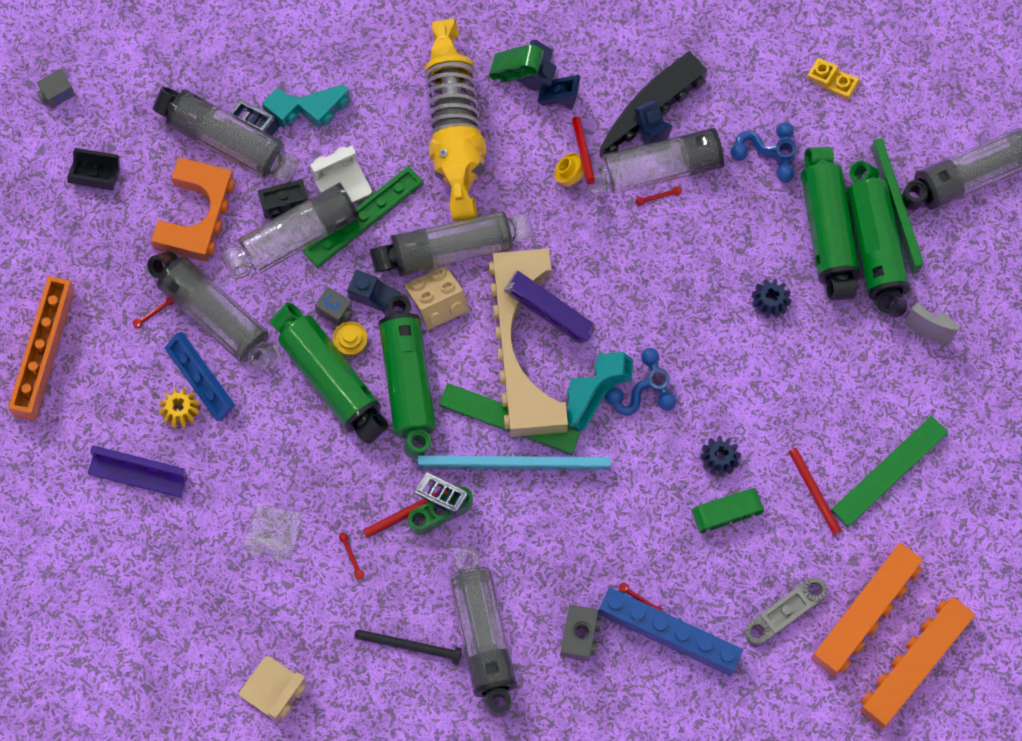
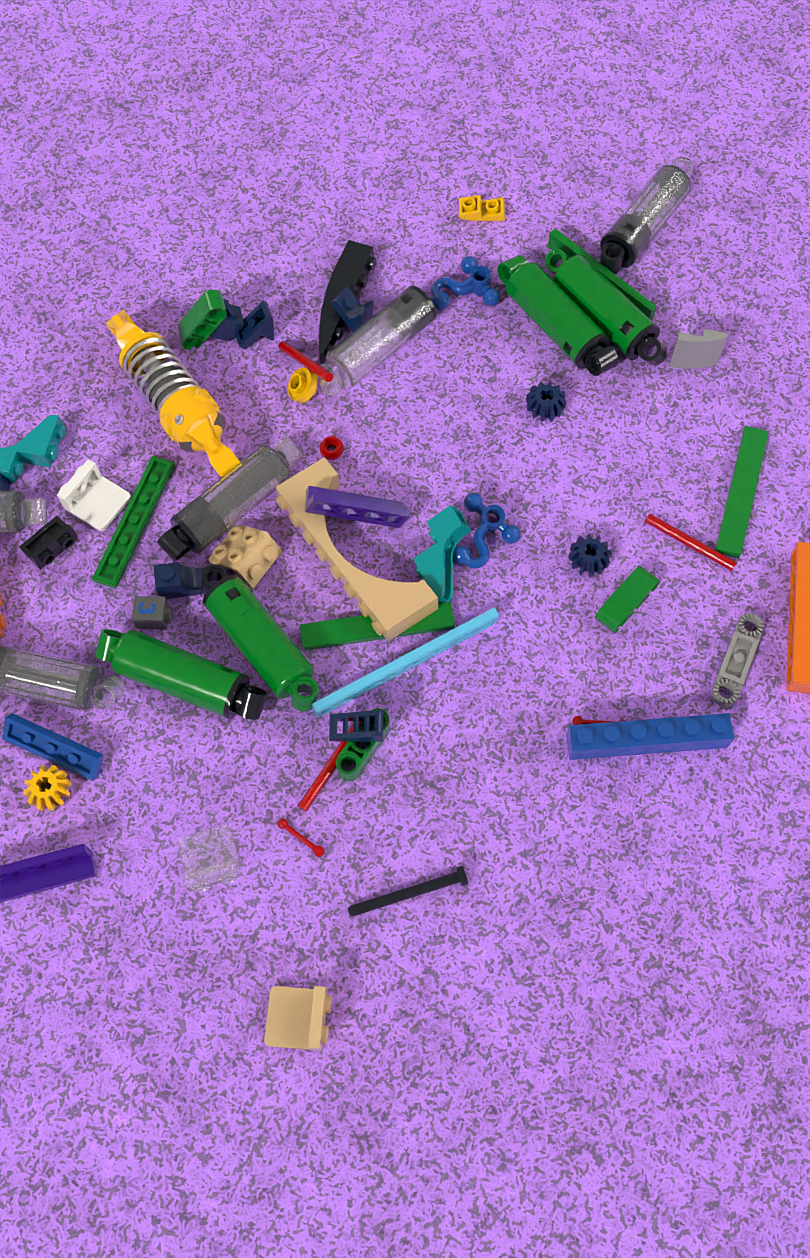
camera: 25 degrees left, 5 degrees down
(291, 232) = (71, 565): clear piece -> none
(350, 339) = (183, 632): yellow plate -> none
(482, 631) = (475, 838): clear piece -> none
(562, 234) = (328, 442): none -> red plate
(578, 618) = (566, 802): dark grey brick -> none
(676, 191) = (405, 360): red hinge -> none

